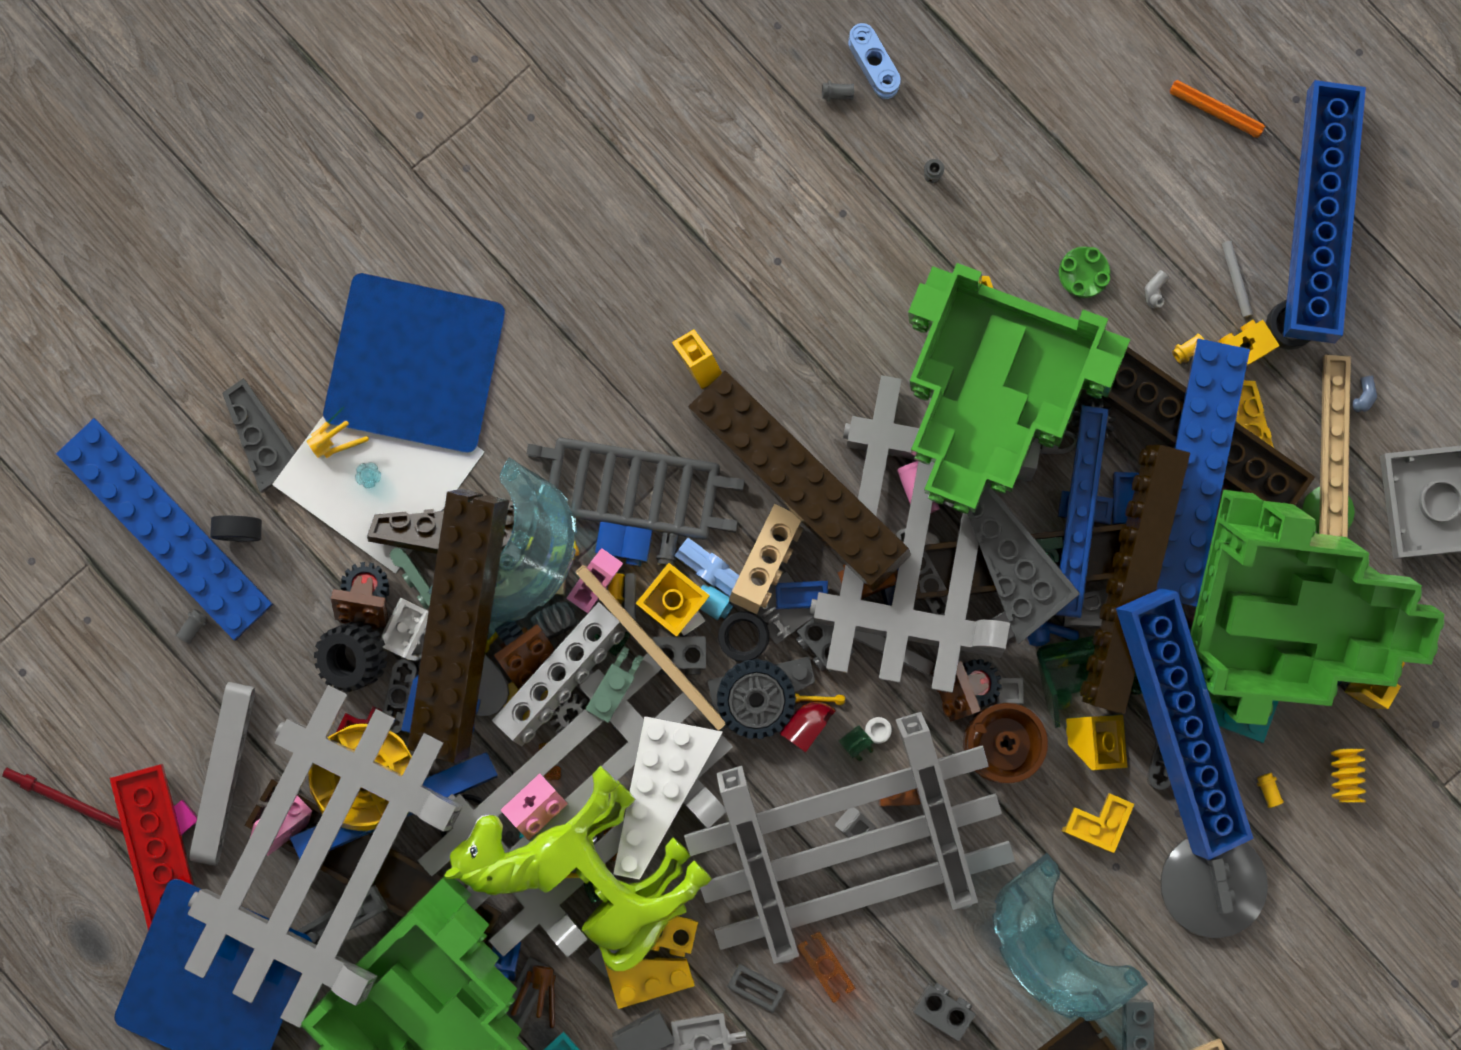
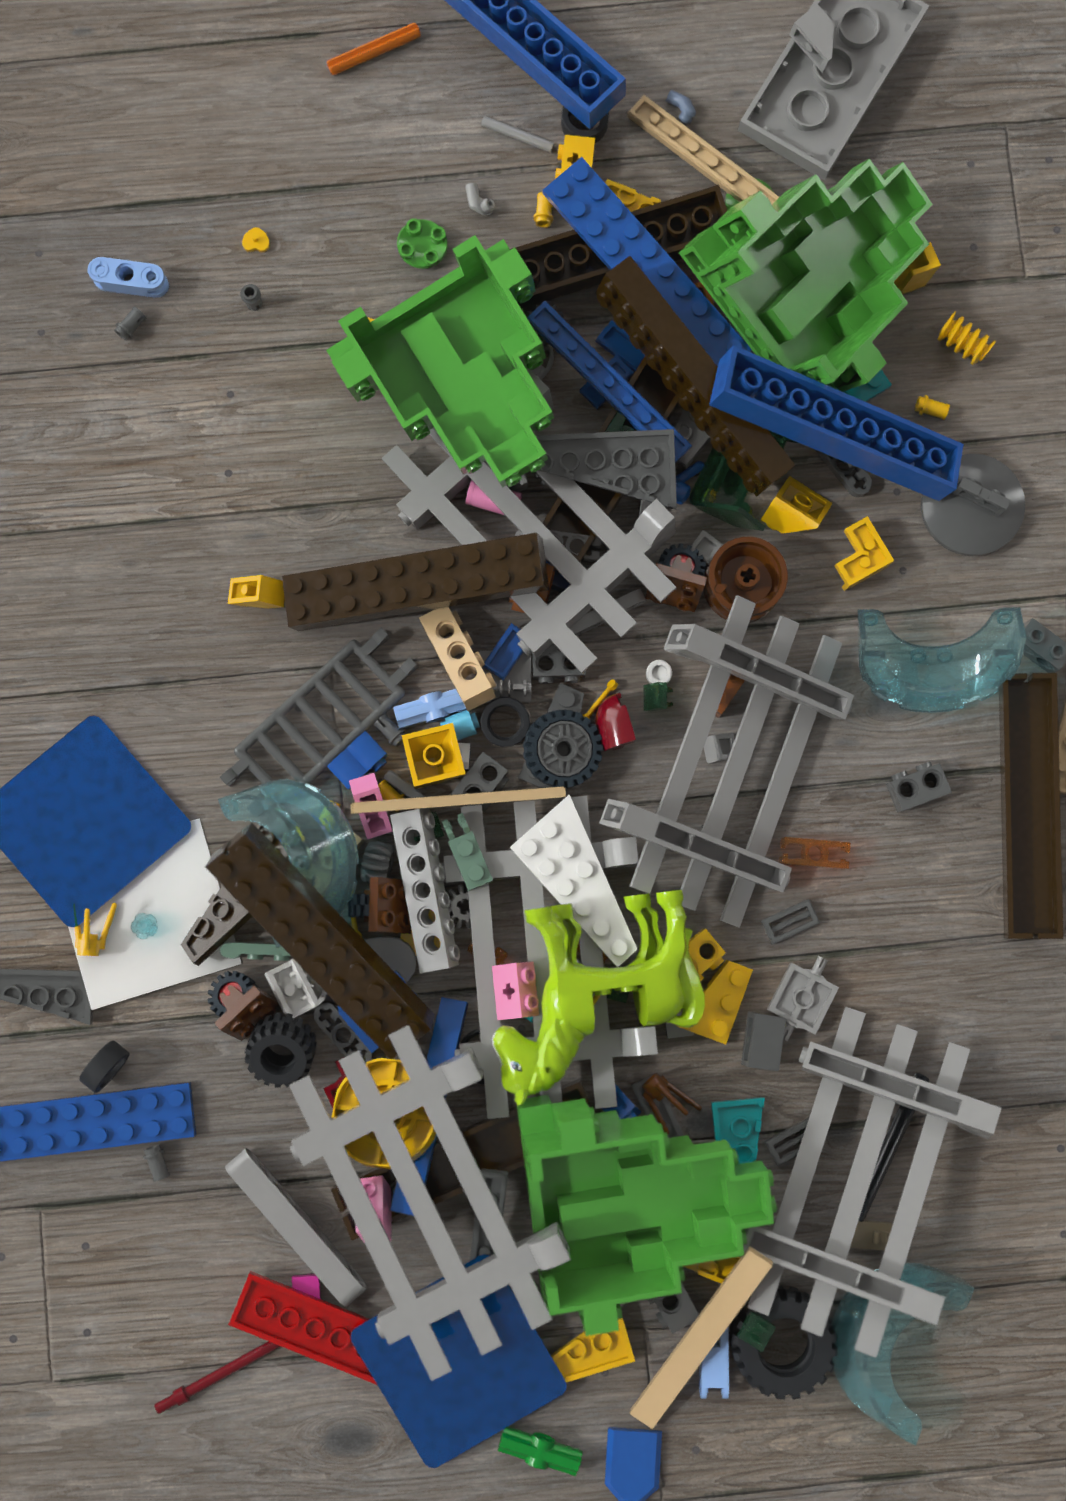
camera: 55 degrees left, 0 degrees up
(984, 137) = (255, 240): none -> yellow piece

